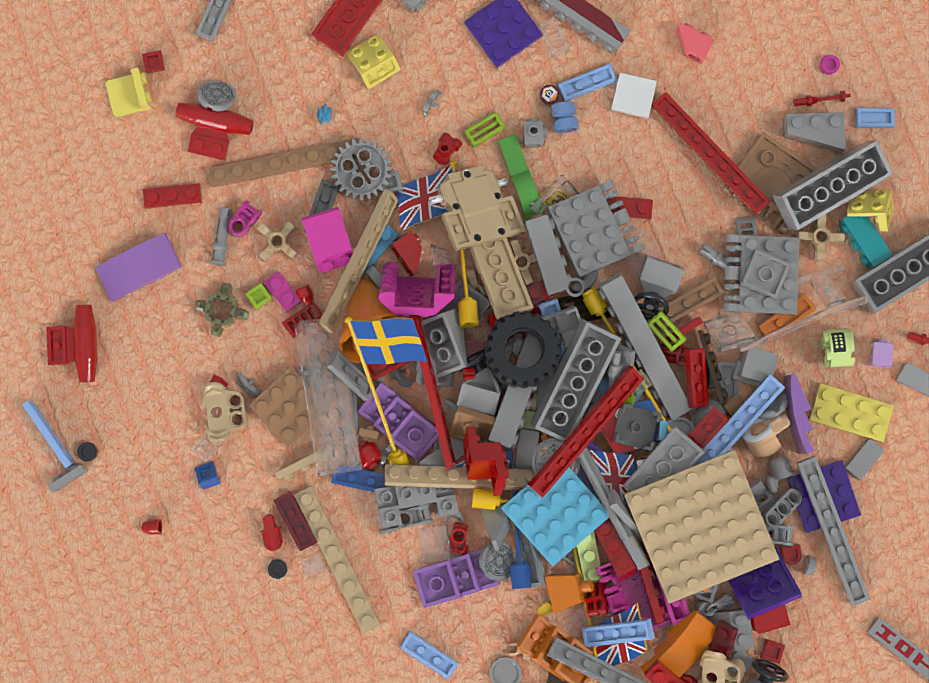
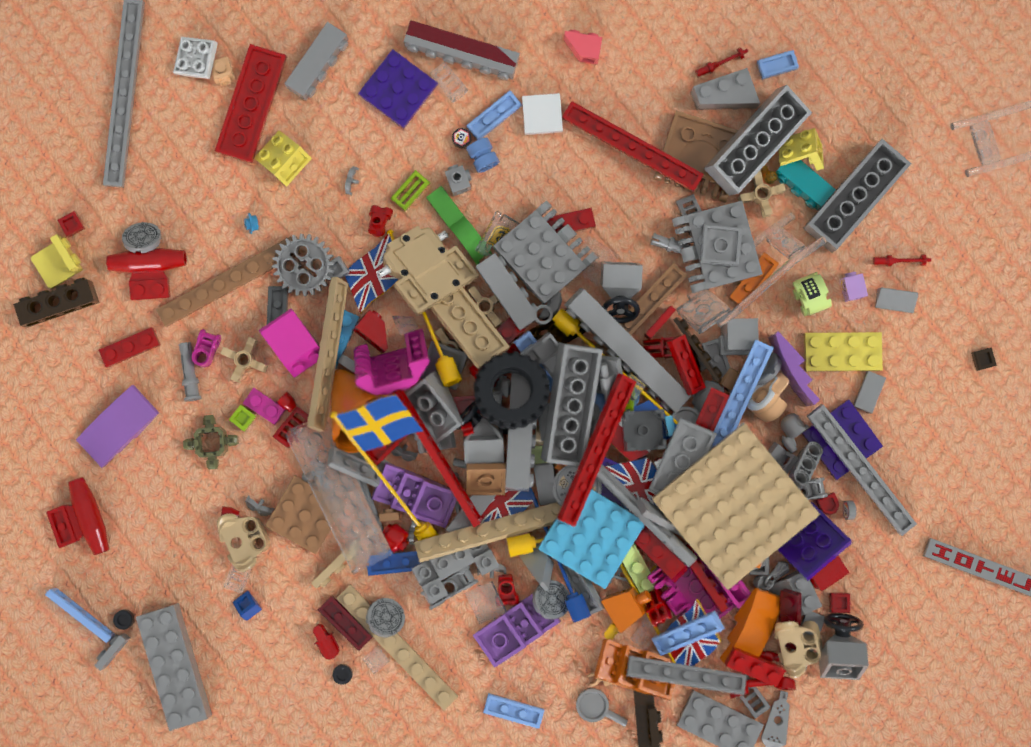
camera: 20 degrees left, 0 degrees up
(121, 511) = (174, 667): none -> light grey brick
(146, 136) = (26, 306): none -> dark brown brick
(152, 527) = (209, 672): red hose -> none
(335, 527) = (385, 617): none -> light grey tile
(485, 461) = (509, 508): red bracket -> none
(655, 318) = (629, 320): lime tile -> none
(829, 64) = (719, 27): dark pink tile -> none
(831, 222) = (769, 177): none -> clear yellow arm

